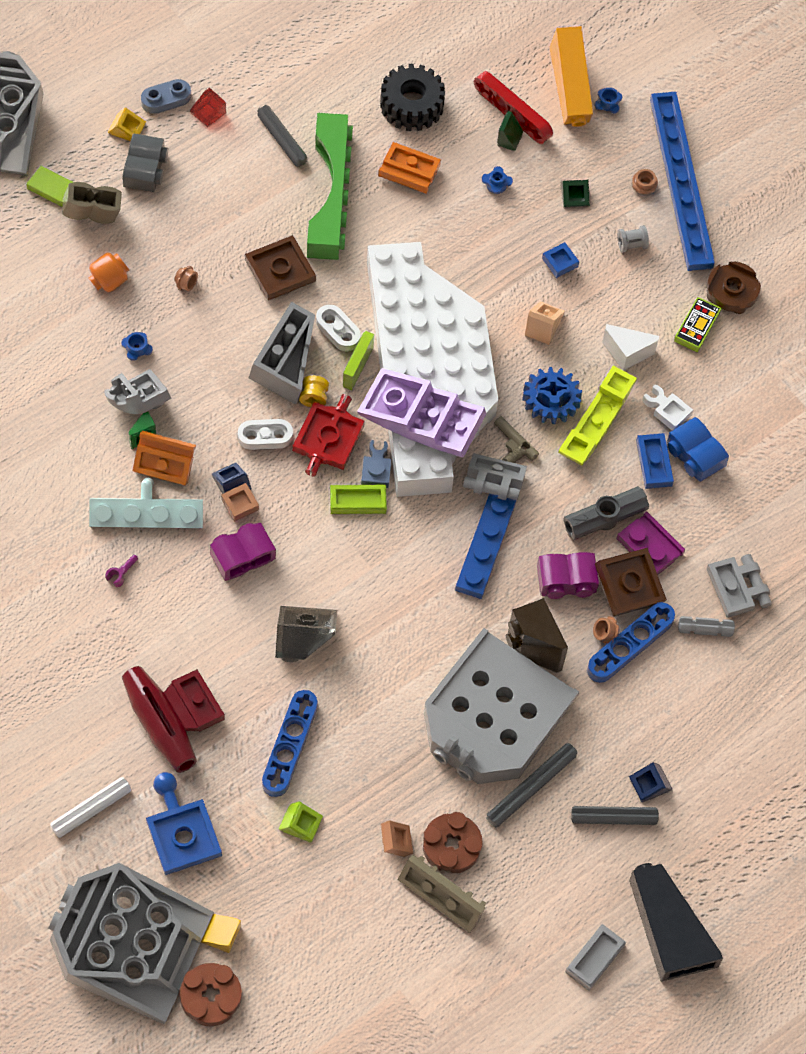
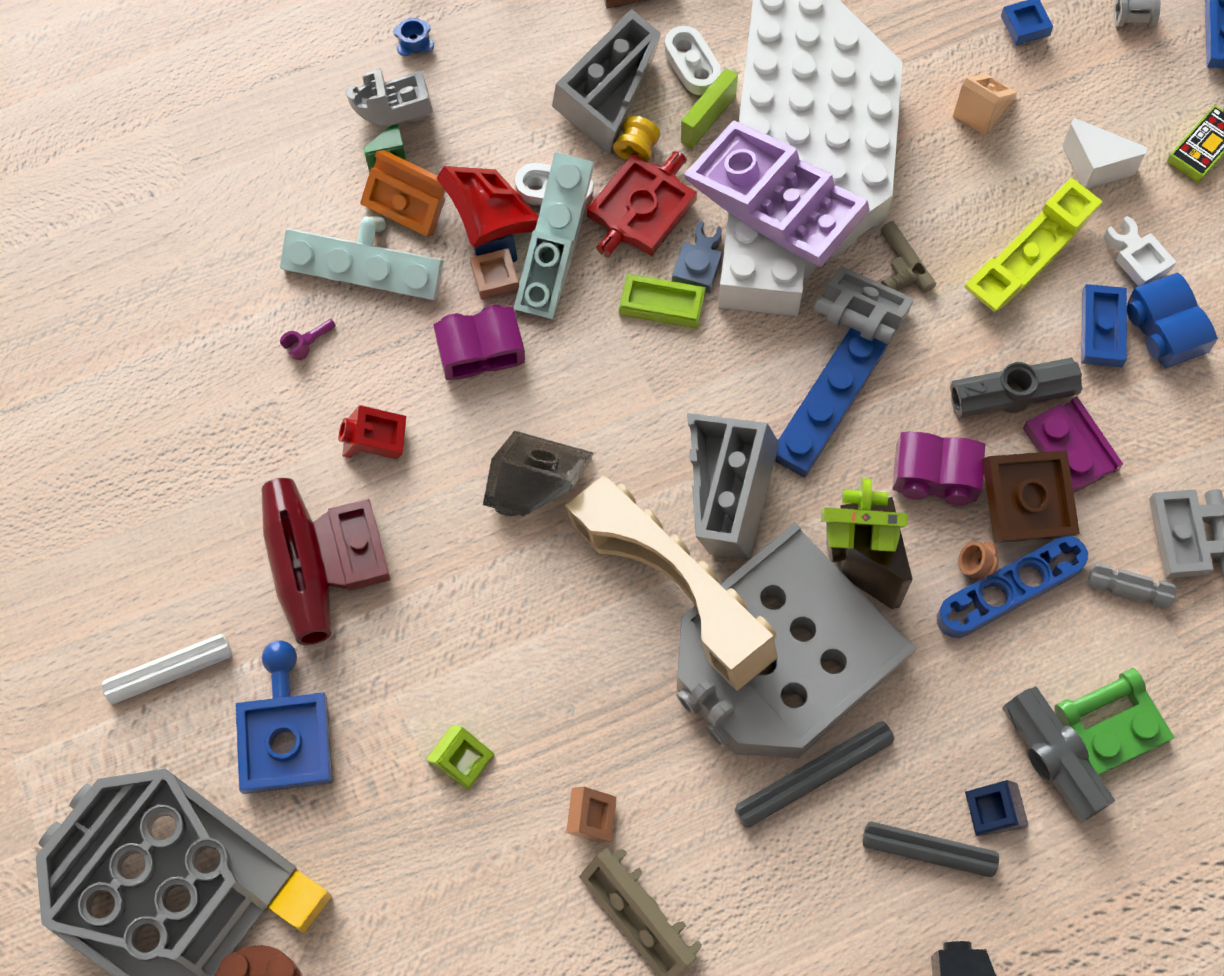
camera: 20 degrees right, 5 degrees up
(186, 624) = (373, 432): none -> red bracket
(224, 455) = (486, 203): none -> red plate
(276, 468) = (554, 236): none -> light aqua slope
(287, 742) = (468, 630): blue beam -> none
(367, 653) = (730, 635): none -> arch
(435, 609) = (730, 481): none -> light grey wedge
(455, 826) = (698, 849): copper plate -> none
(516, 618) = (884, 525): none -> lime hips
(554, 393) = (973, 205): blue gear -> none
(681, 740) = (1058, 754): none -> dark grey piece
(718, 722) = (1123, 735): none -> bright green plate

